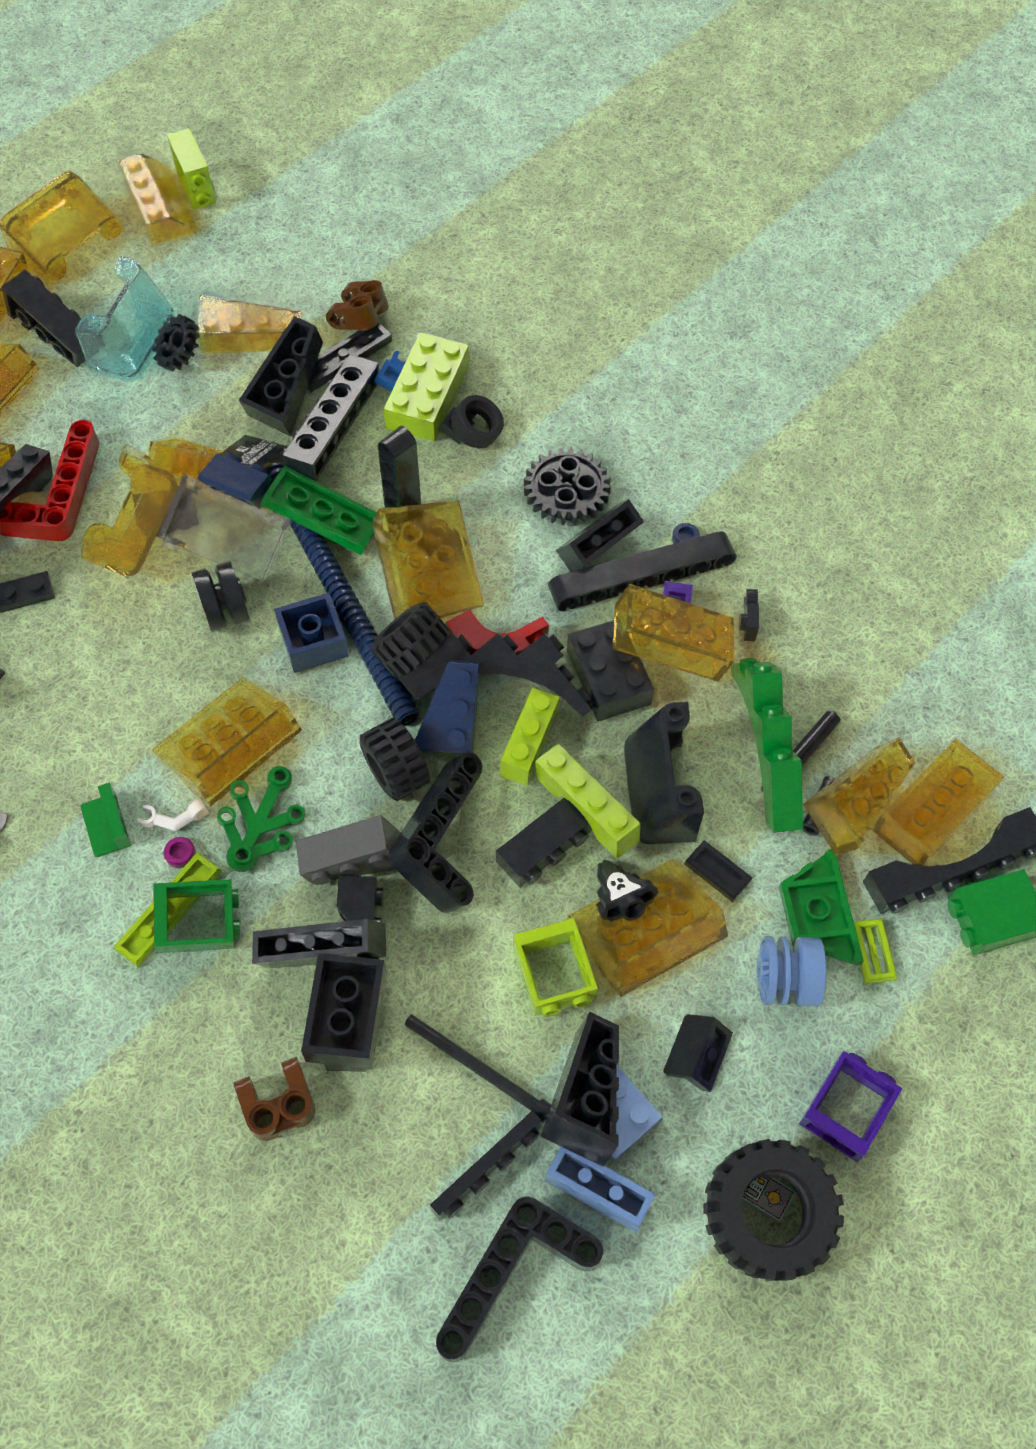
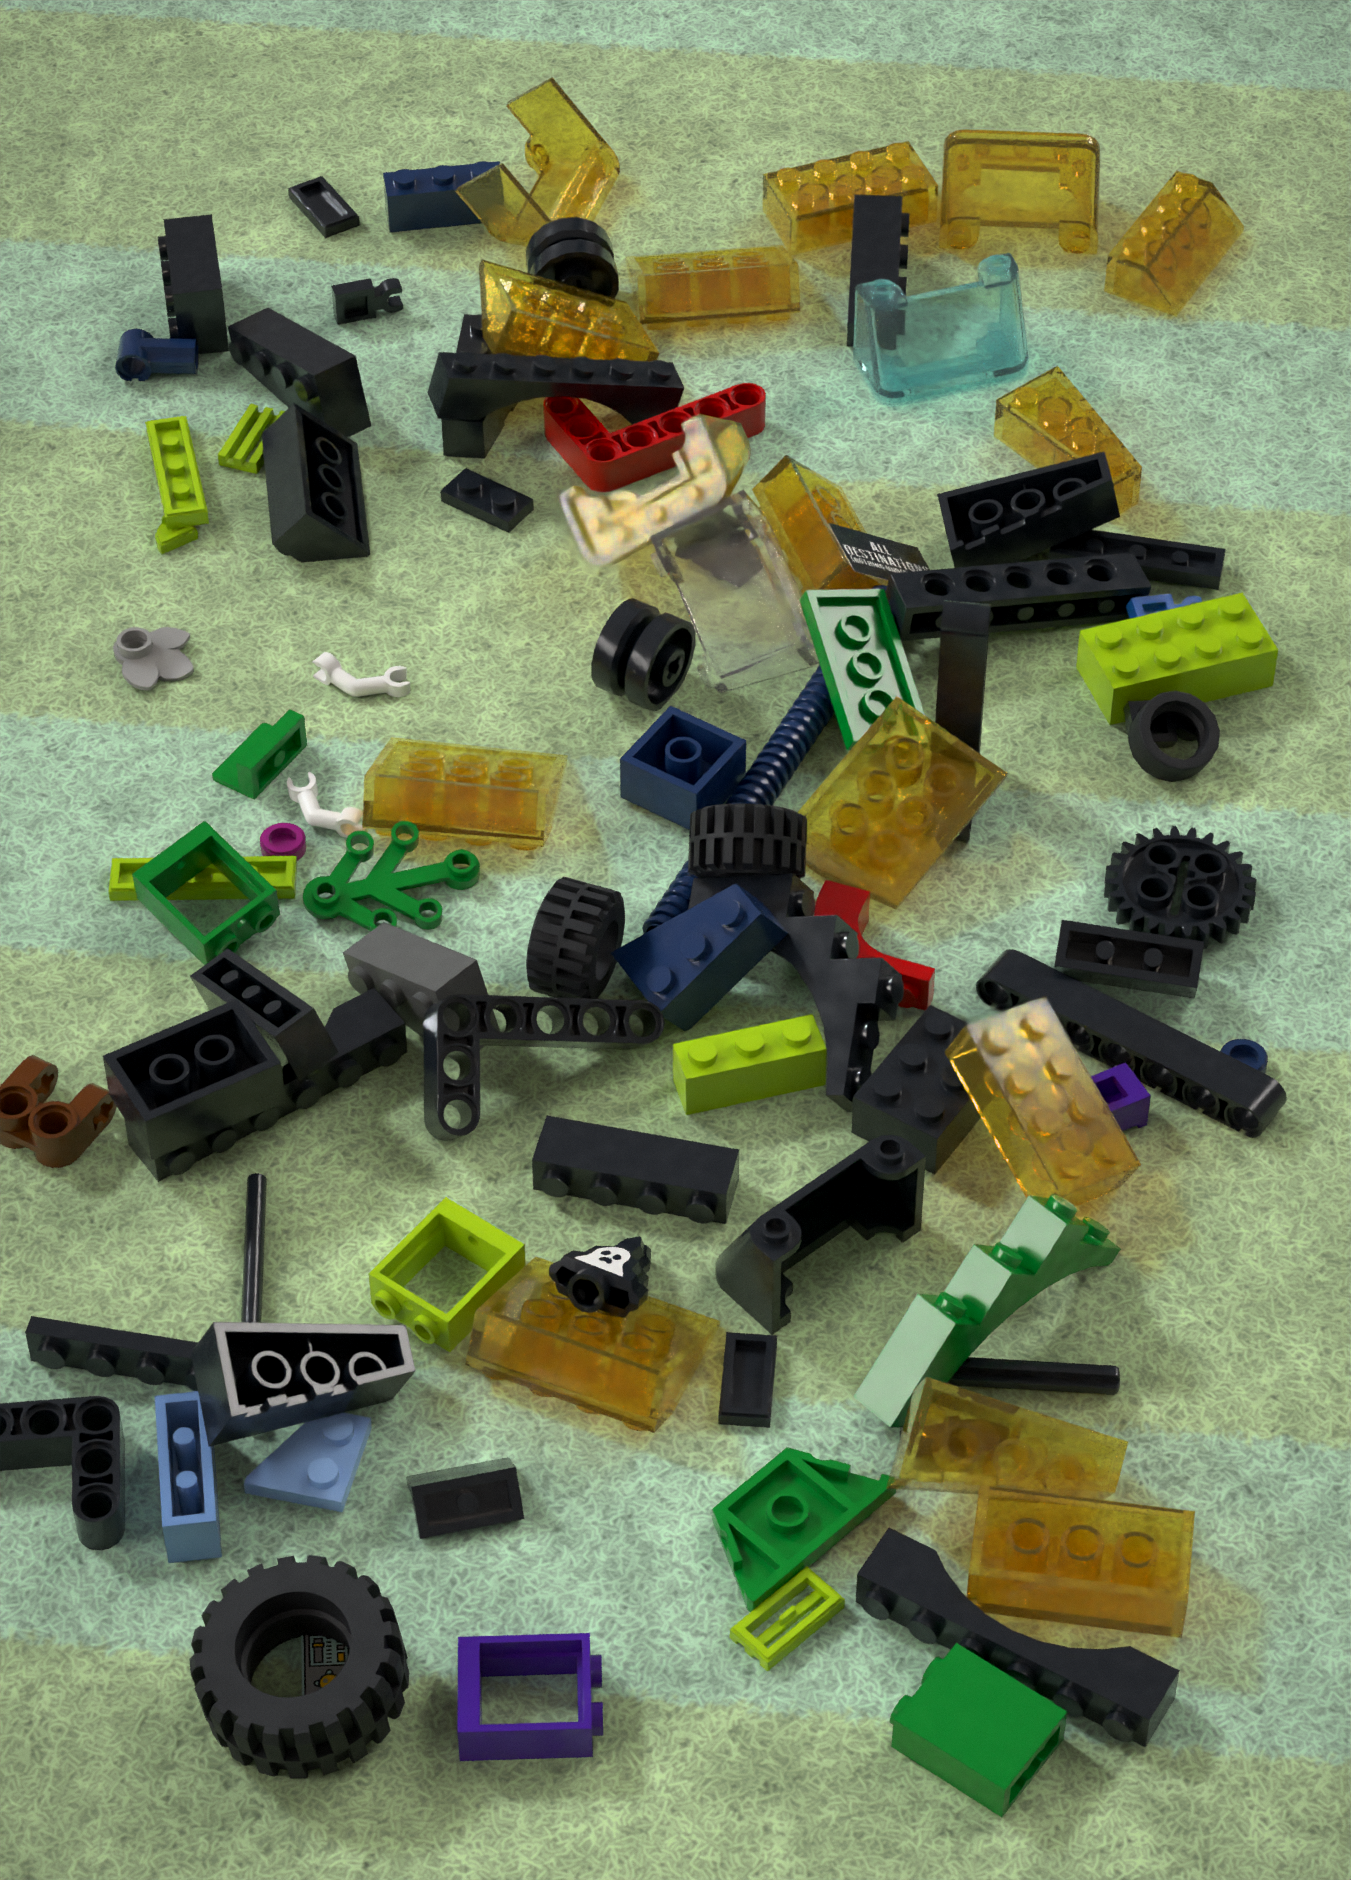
camera: 55 degrees right, 15 degrees down
(76, 747) = (333, 673): none -> white arm
(176, 342) = (967, 394): black gear -> none
(191, 168) = (1246, 239): lime window -> none
(236, 479) = (803, 548): dark blue slope -> none
(358, 311) = (1217, 524): reddish brown piece -> none
(607, 817) = (695, 1179): lime arch -> none
(750, 619) = (1176, 1196): black plate -> none
(795, 971) = (654, 1514): medium blue wheel -> none

